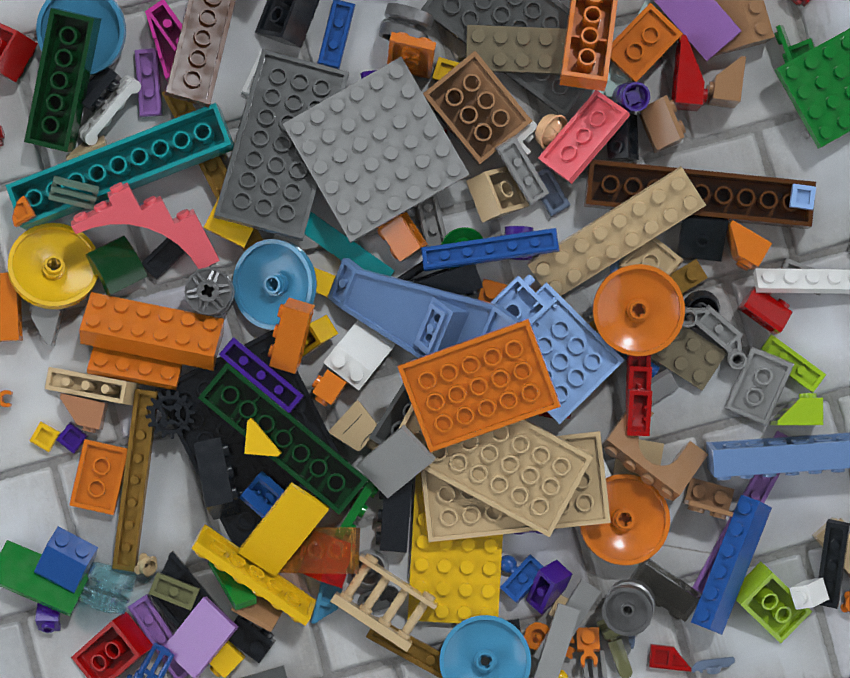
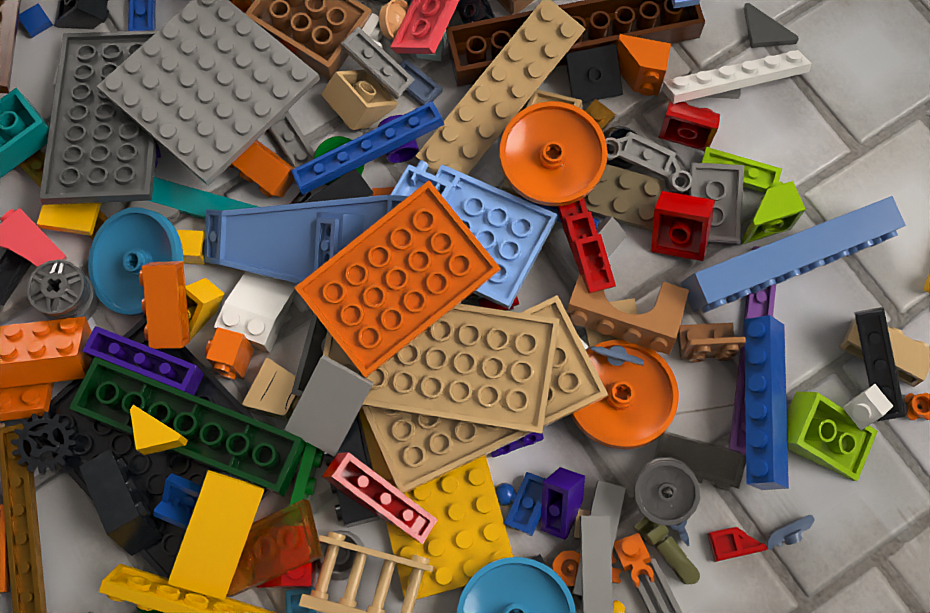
camera: 20 degrees left, 15 degrees down
(240, 22) = (35, 20): none -> blue tile
(380, 604) = (366, 594): dark grey beam -> none
(412, 540) = (379, 496): none -> slope
(631, 489) = (617, 355): none -> sand blue piece
(723, 398) = (682, 225): none -> red slope

